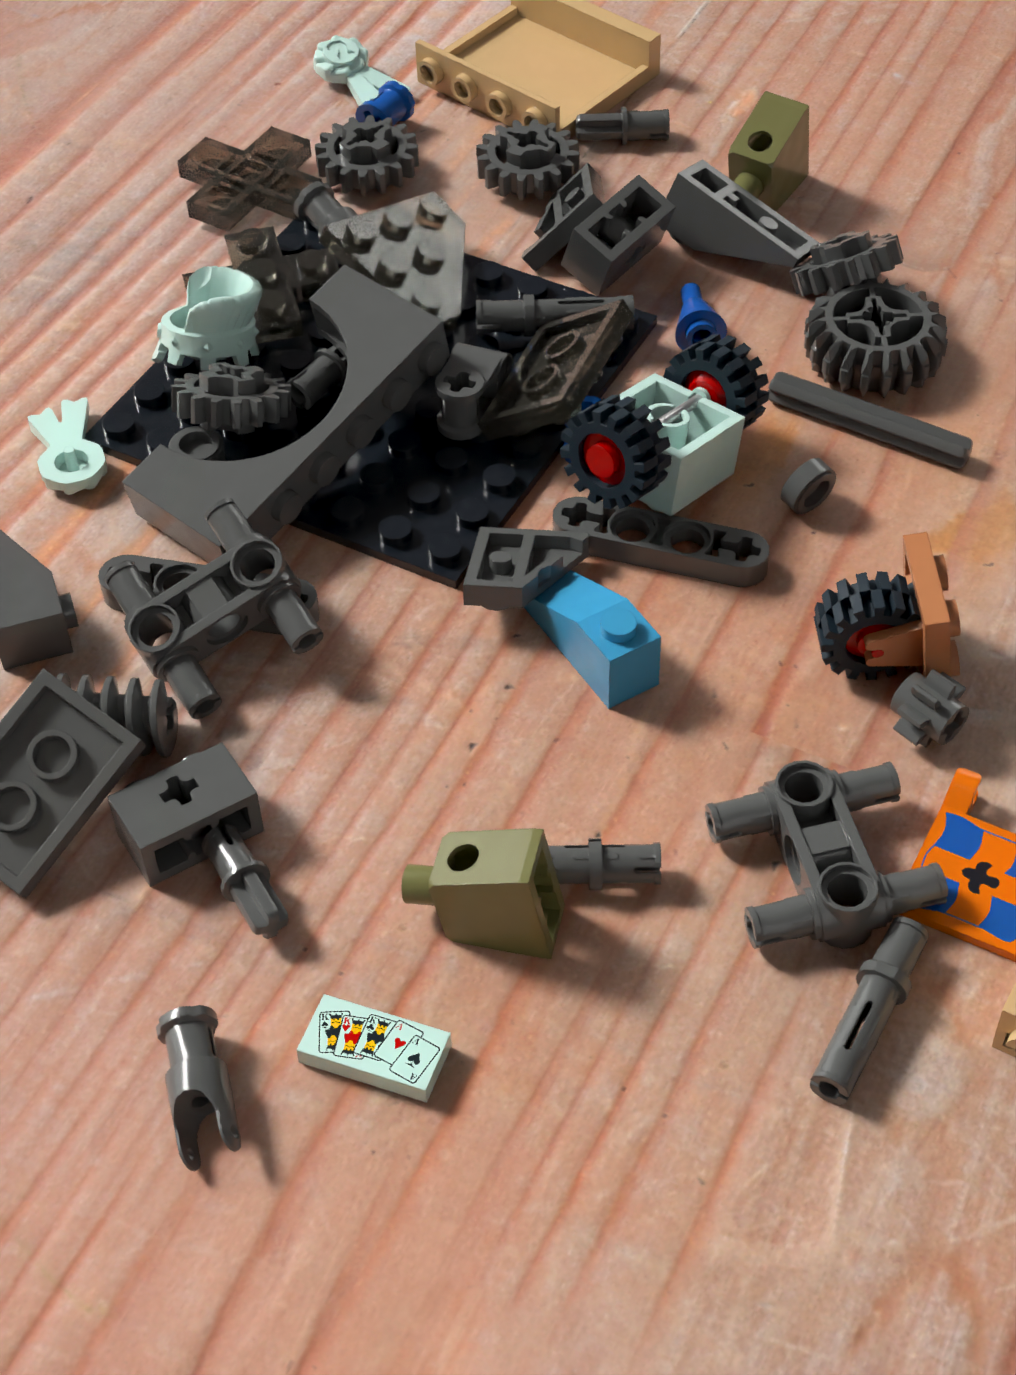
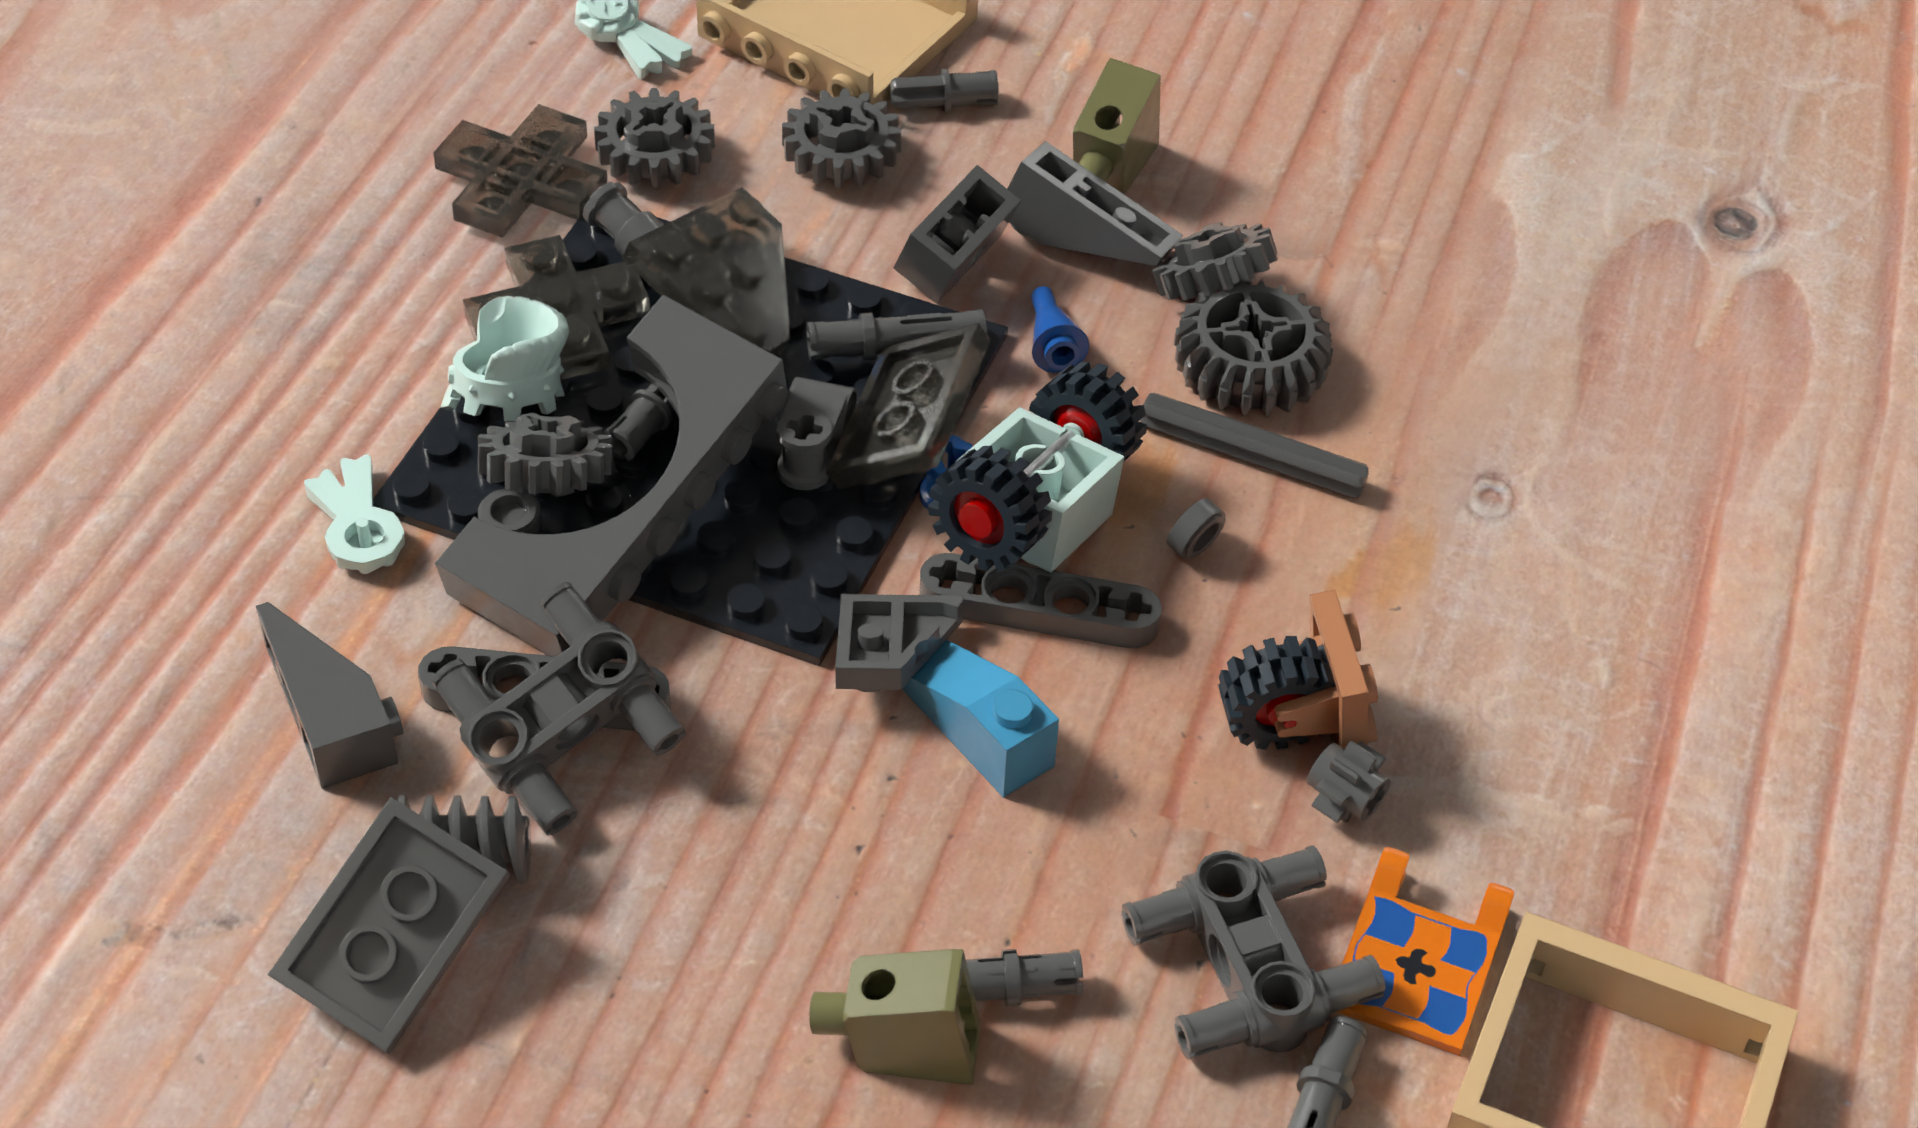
camera: 10 degrees left, 0 degrees up
(174, 810) = (559, 947): dark grey brick -> none
(245, 881) = (634, 1020): dark grey axle -> none
(392, 102) = (675, 70): blue bush -> none
(564, 212) = (895, 207): dark grey wing -> none

